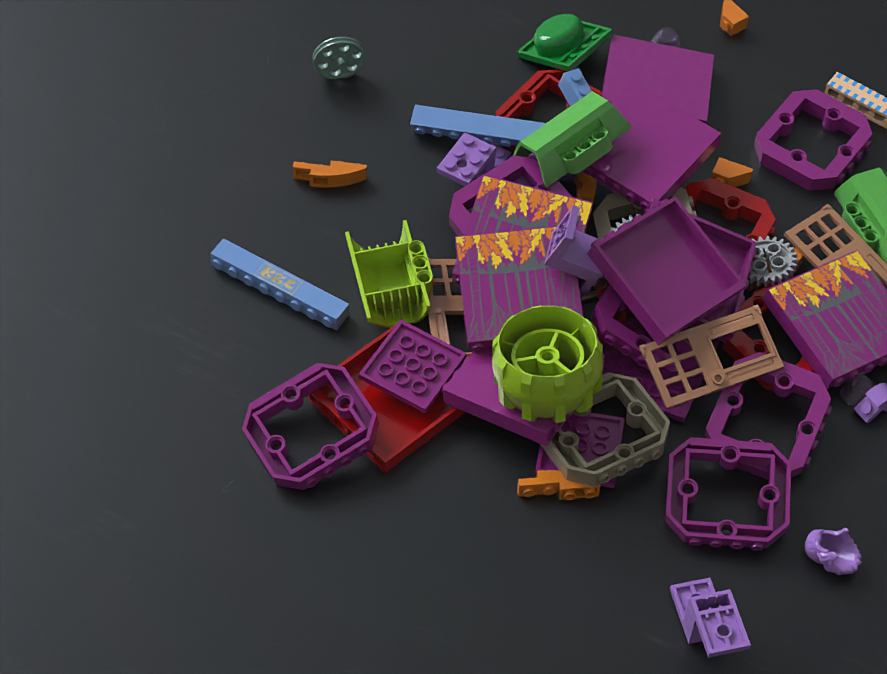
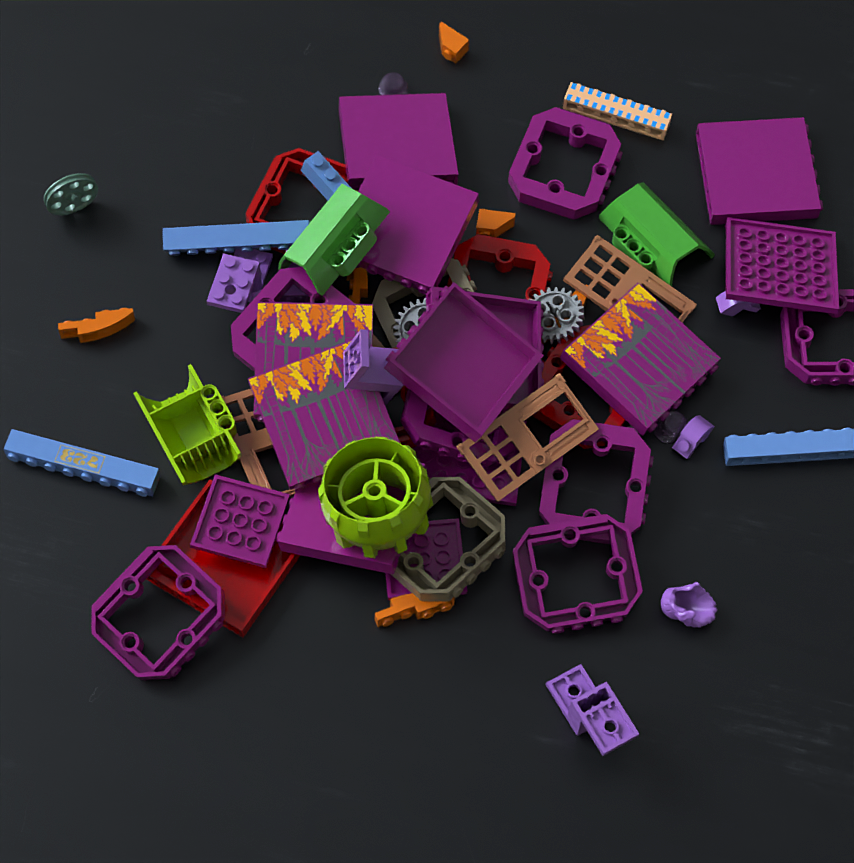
camera: 15 degrees left, 10 degrees up
(564, 42) = (293, 116): green piece -> none

